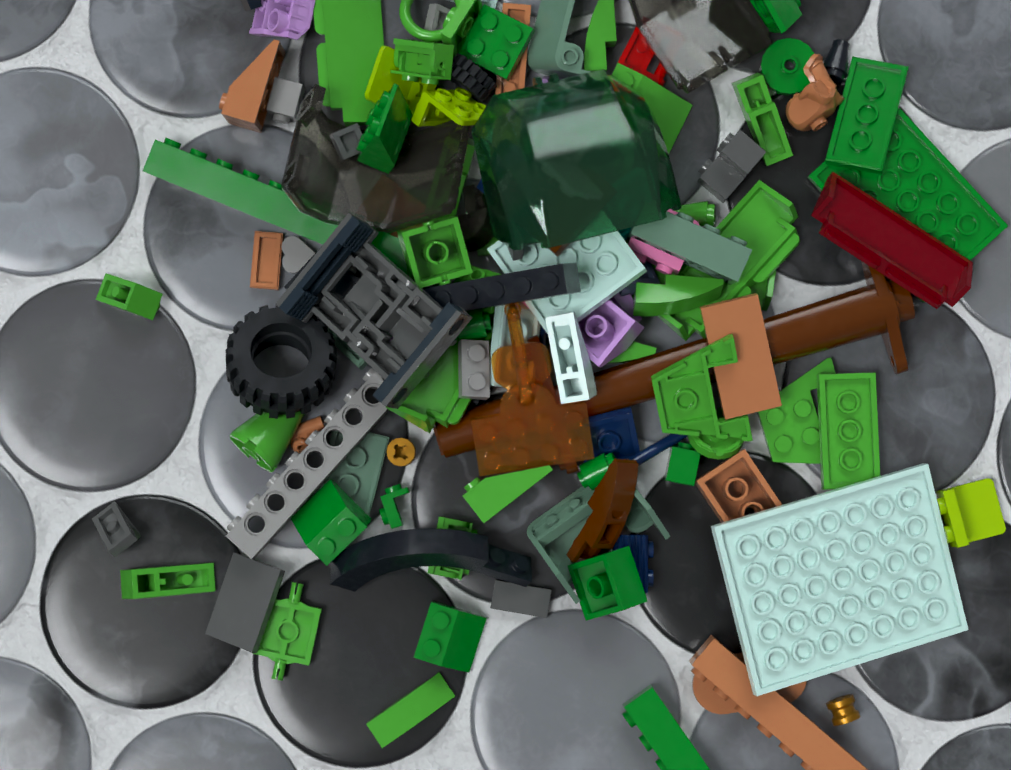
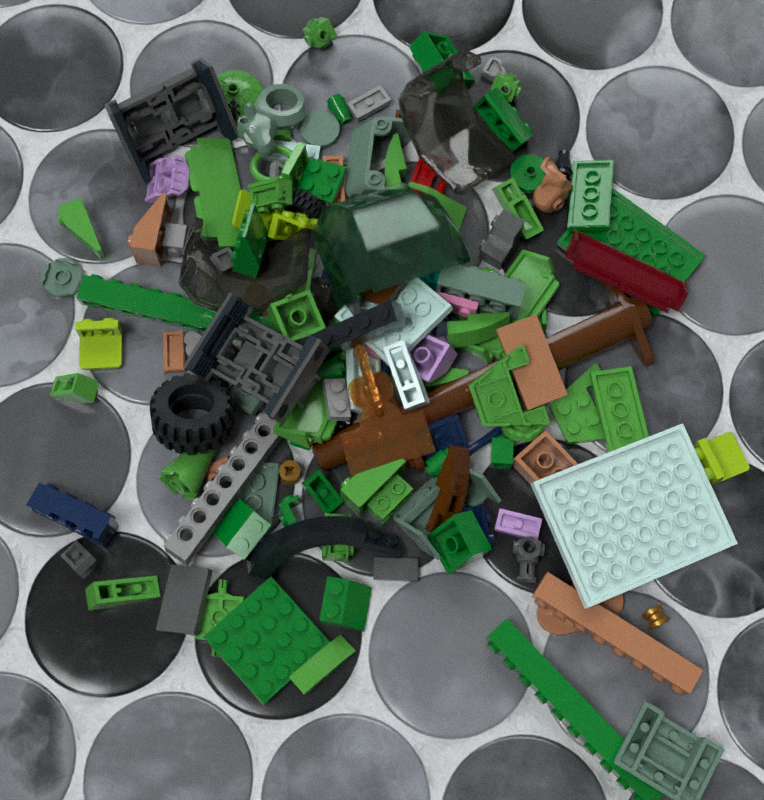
camera: 10 degrees left, 15 degrees down
(112, 469) = (73, 514): none -> dark blue wedge
(126, 132) = (62, 278): none -> sand green tile
(153, 52) = (78, 224): none -> bright green slope
(168, 239) = (99, 344): none -> lime bracket
(343, 669) = (266, 640): none -> green plate
(439, 487) = (322, 492): none -> green slope
(526, 508) = (389, 499): none -> bright green hinge
(688, 563) = (517, 524): none -> lavender plate
(693, 612) = (528, 559): none -> dark grey connector

